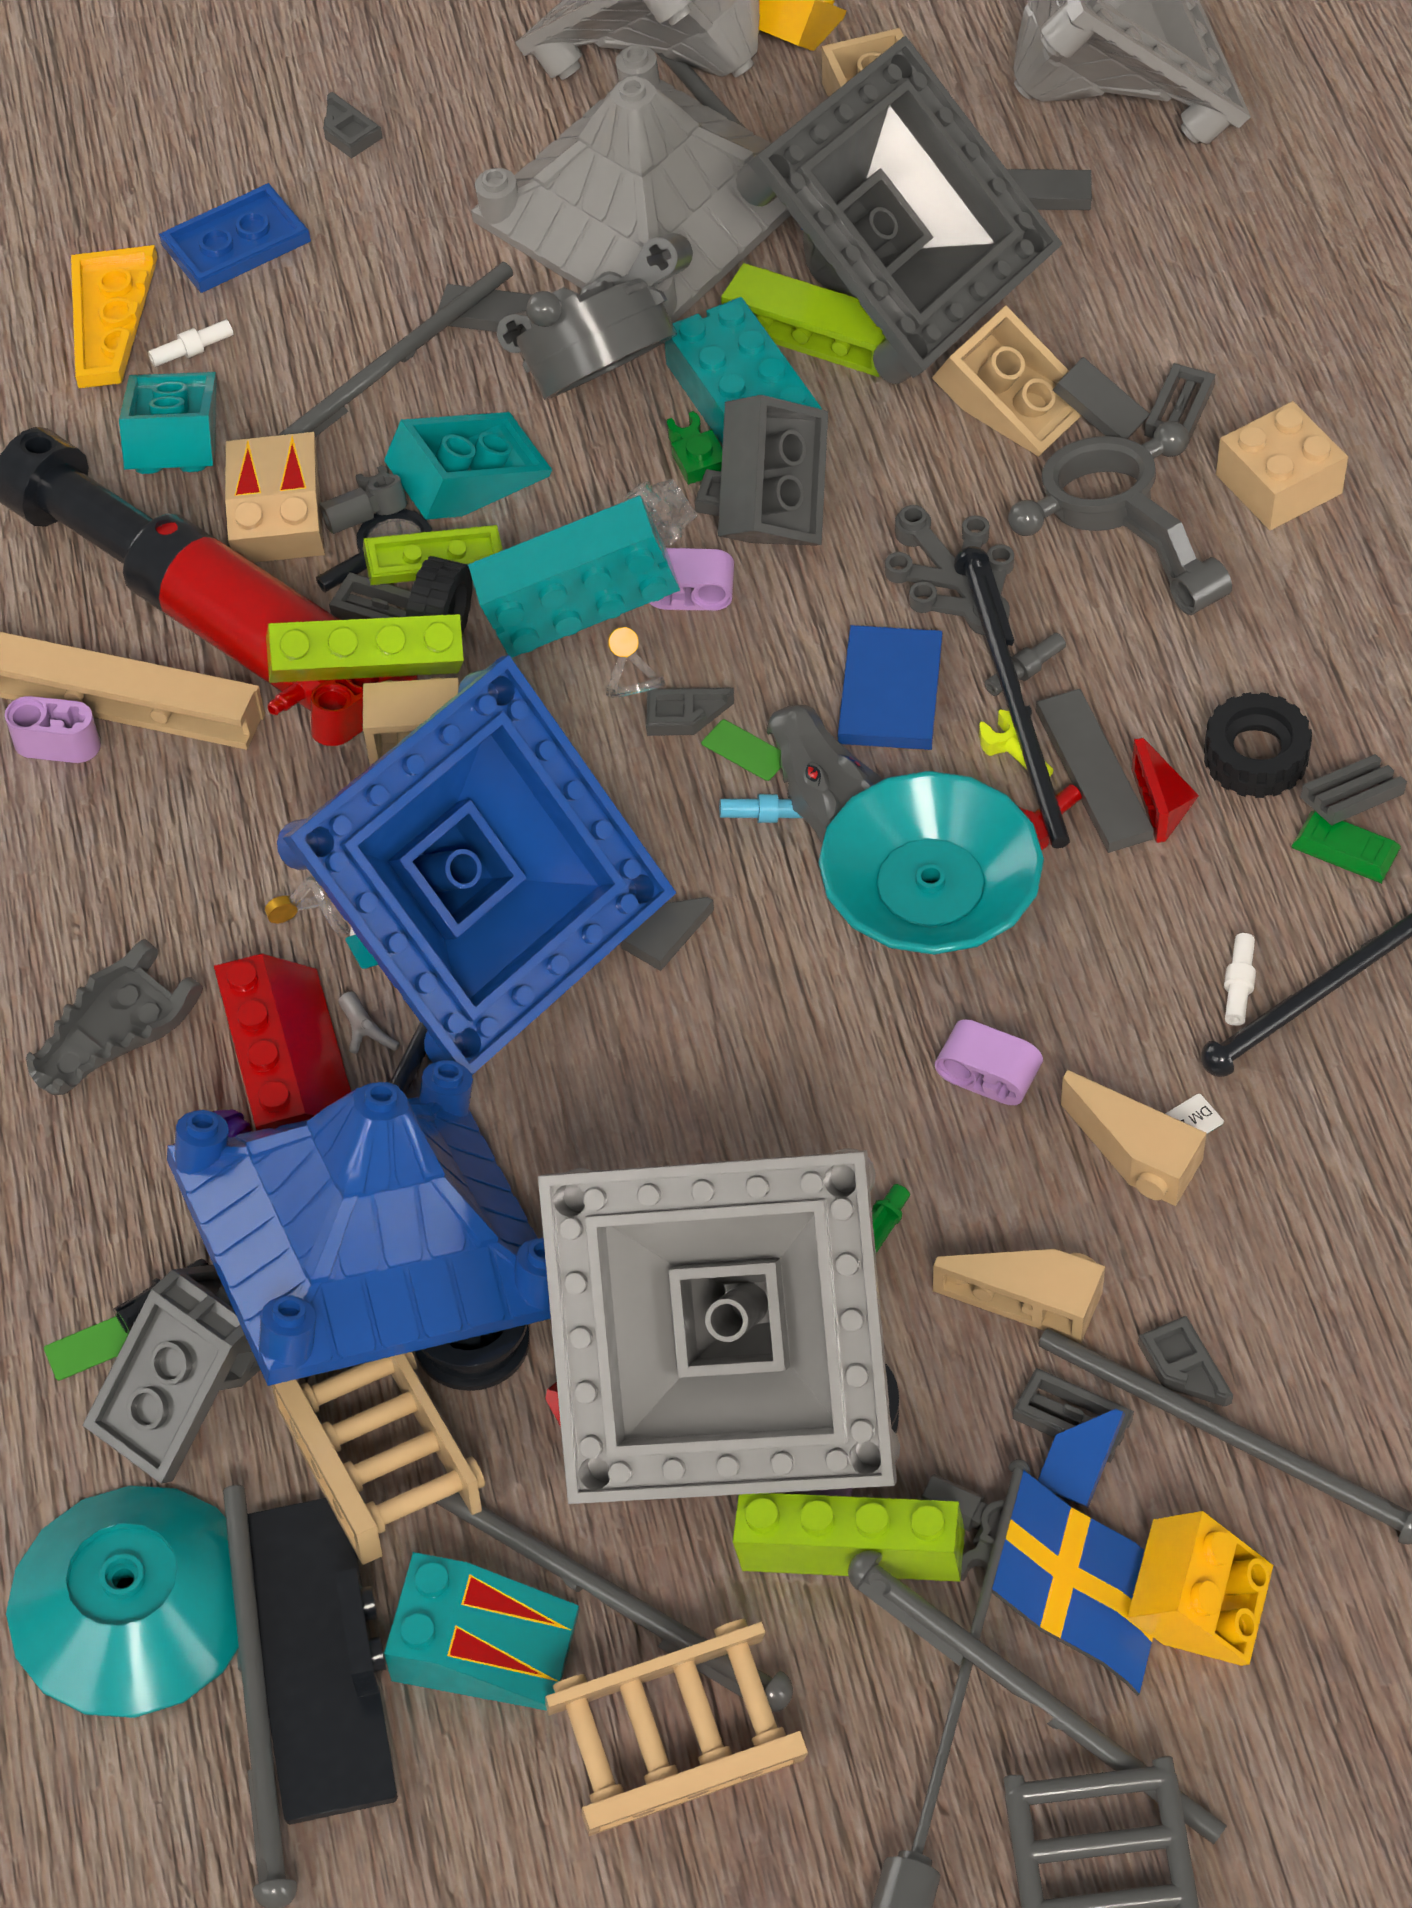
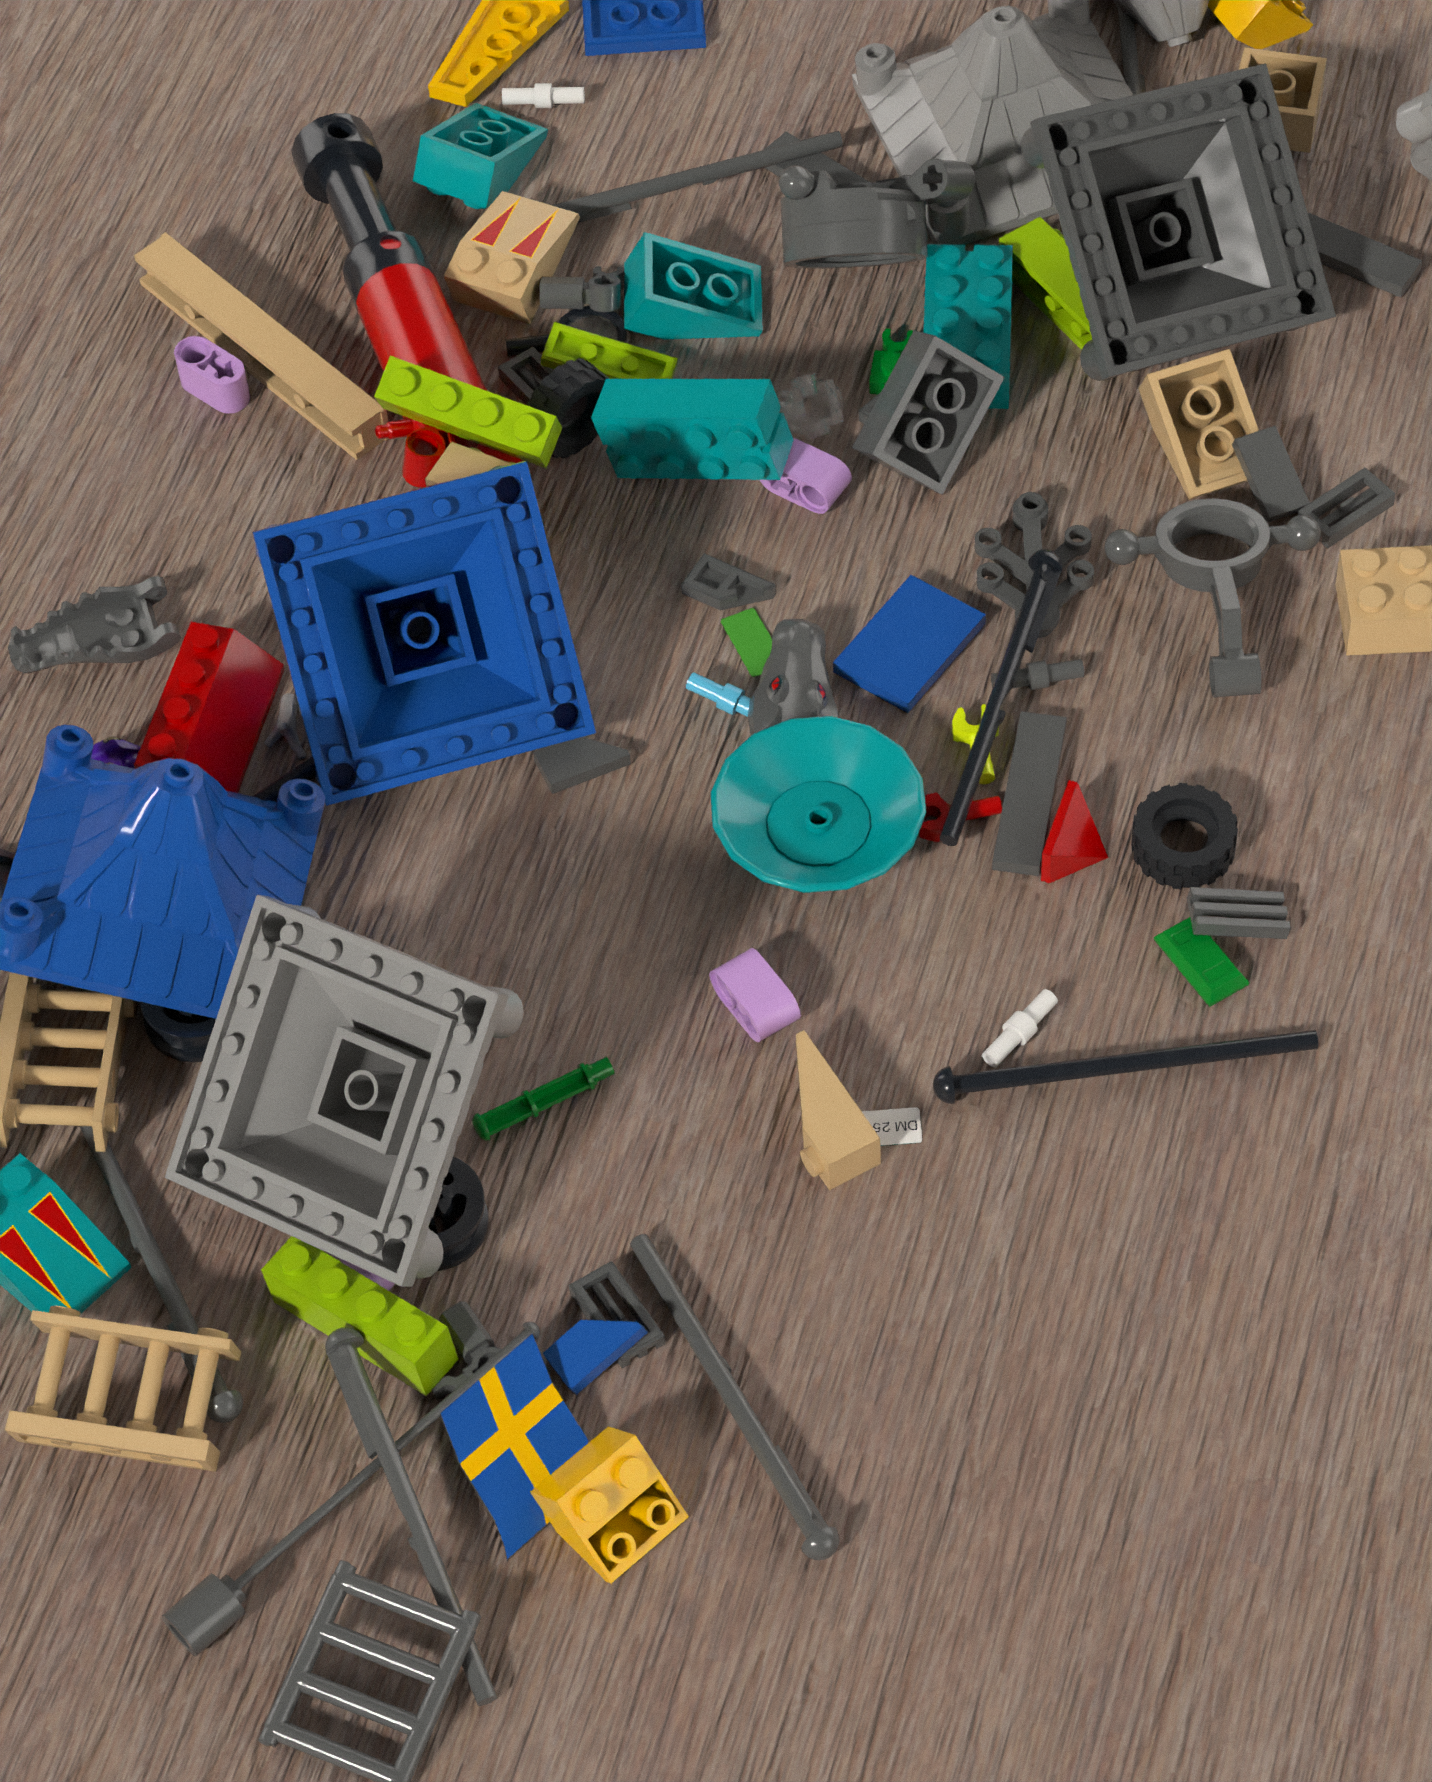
camera: 30 degrees right, 0 degrees up
(624, 643) = (707, 505): clear piece -> none
(1026, 1286) = (653, 1193): tan slope -> none
(1184, 1362) = (737, 1317): dark grey tile -> none

